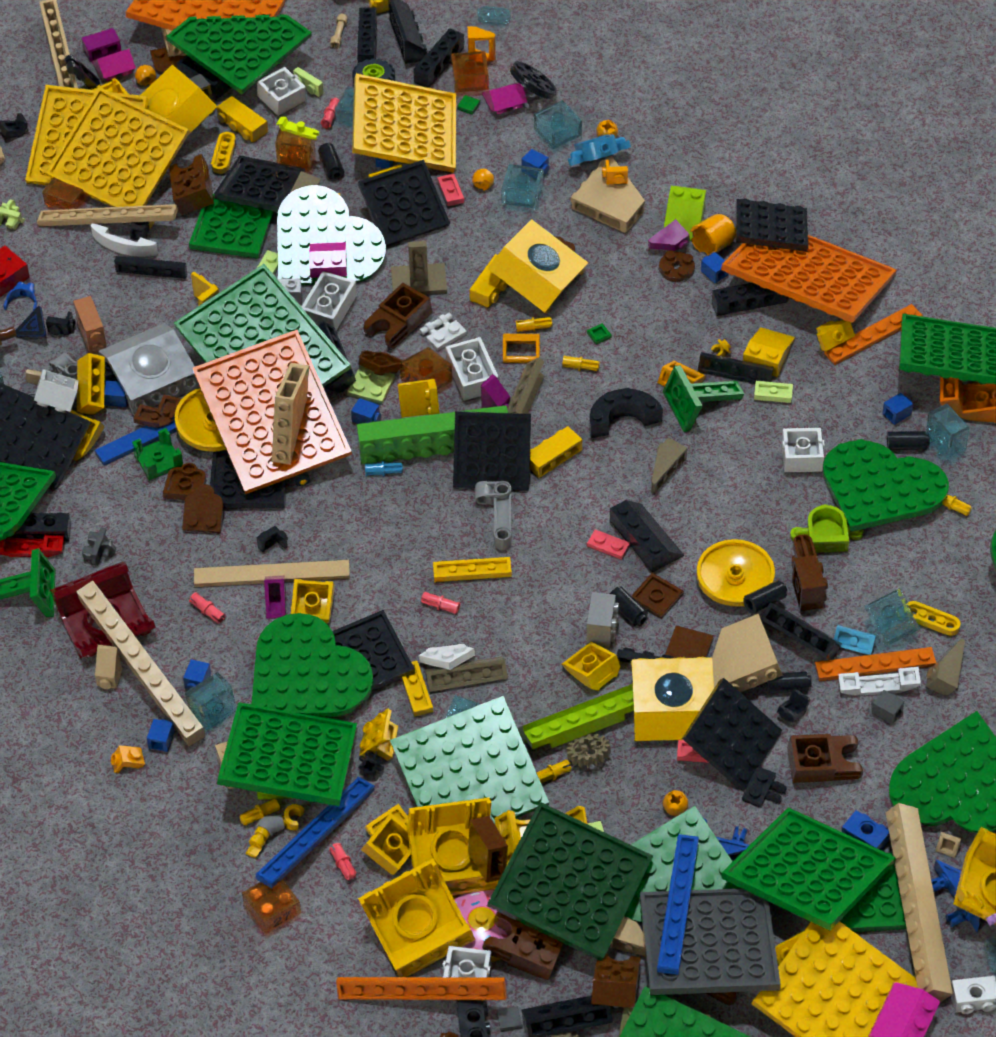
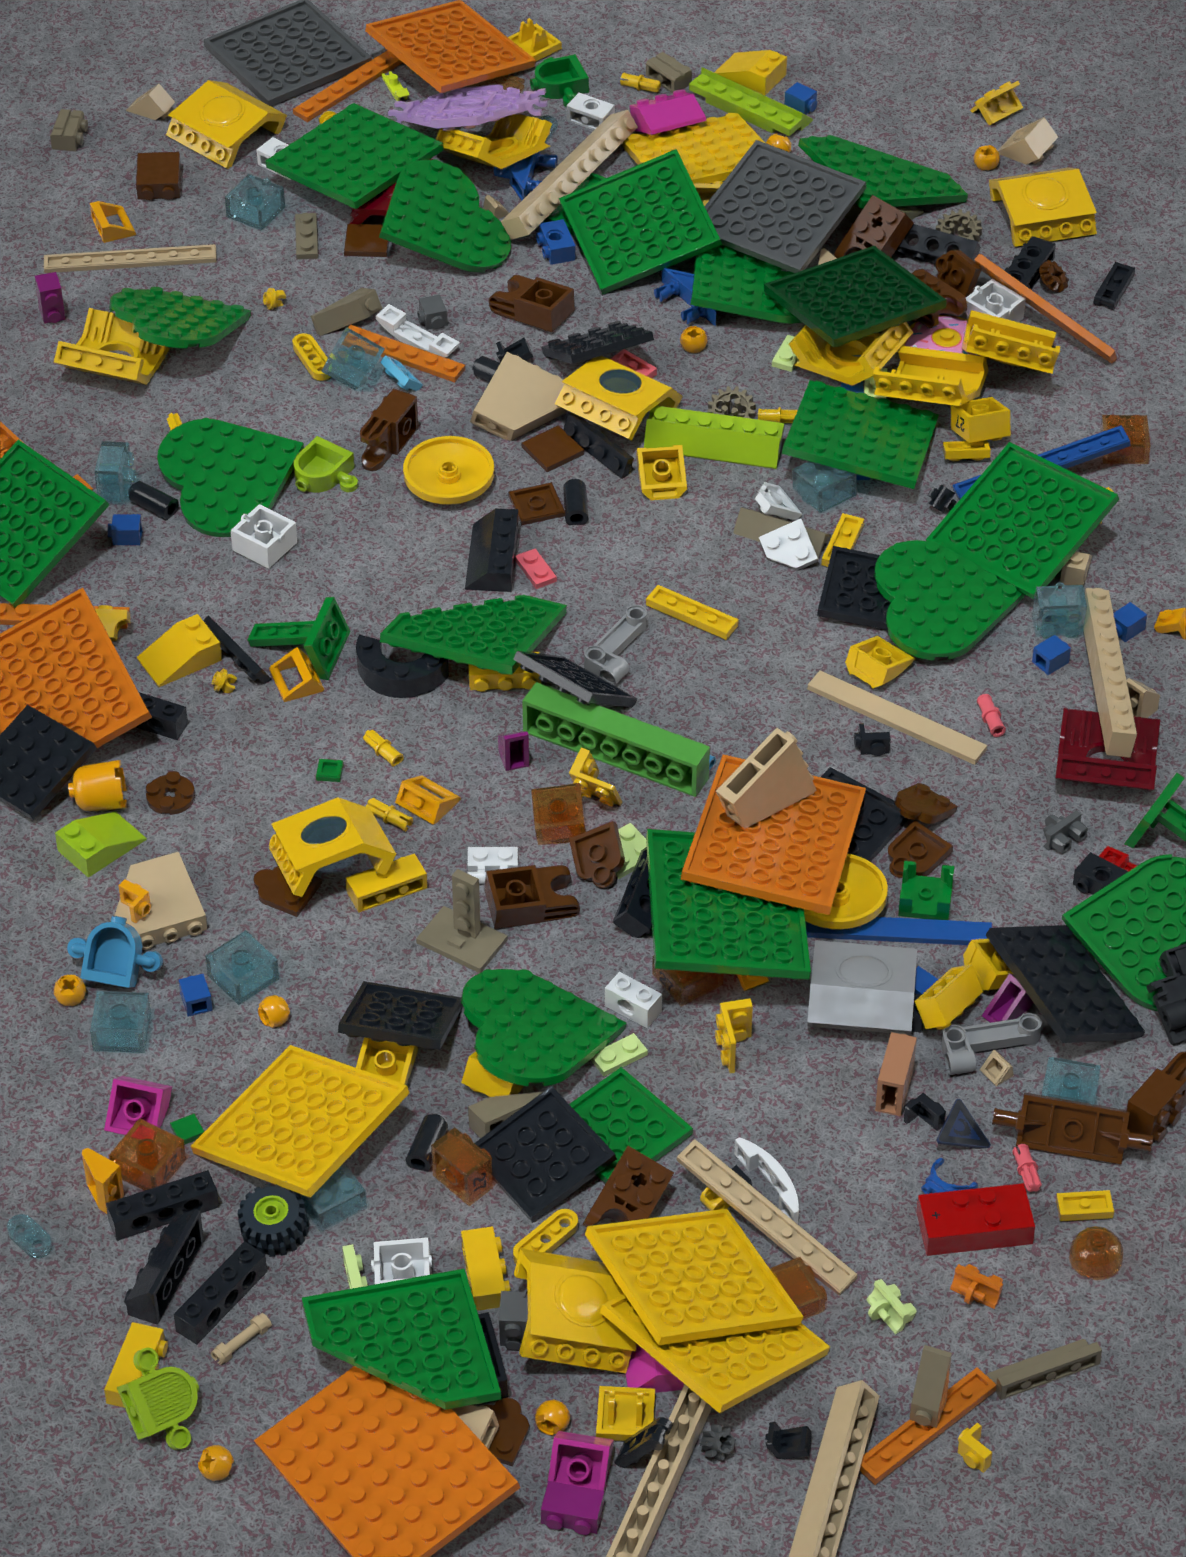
camera: 145 degrees left, 5 degrees down
(56, 391) = (1002, 981): white brick -> none
(150, 267) = (768, 1130): black plate -> none
(159, 416) = (898, 933): reddish brown plate -> none
(275, 596) = (910, 688): magenta slope -> none
(297, 129) = (449, 1152): neon yellow piece -> none
(327, 258) = (554, 988): slope -> none
(329, 113) = (364, 1216): coral pin -> none
(330, 299) = (593, 953): white brick -> none
(343, 861) = (1032, 441): coral axle -> none
(365, 412) = (661, 813): blue brick -> none
(378, 736) = (917, 512): yellow bracket -> none
(440, 602) = (750, 599): coral axle -> none
(450, 190) = (321, 1024): coral plate -> none
(470, 366) = (506, 791): white brick -> none
(486, 682) = (771, 498): none -> white plate
(487, 848) = (907, 343): reddish brown brick -> none
(516, 985) = (958, 271): none -> reddish brown plate
(526, 387) = (476, 734): dark tan panel -> none
(533, 80) = (90, 1088): black wedge -> none
(588, 454) = (477, 634): none -> green plate
(602, 619) = (618, 489): light grey brick -> none
(668, 459) = (406, 598): dark tan slope -> none
(670, 238) = (149, 817): magenta slope -> none
(678, 904) = (780, 233): blue tile -> none
(711, 267) = (136, 762): blue brick -> none
(759, 788) = (604, 318): black hinge -> none
(762, 597) = (449, 424): black brick -> none
(773, 391) = (223, 612): yellowish green plate -> none
(801, 631) = (443, 395): black brick -> none

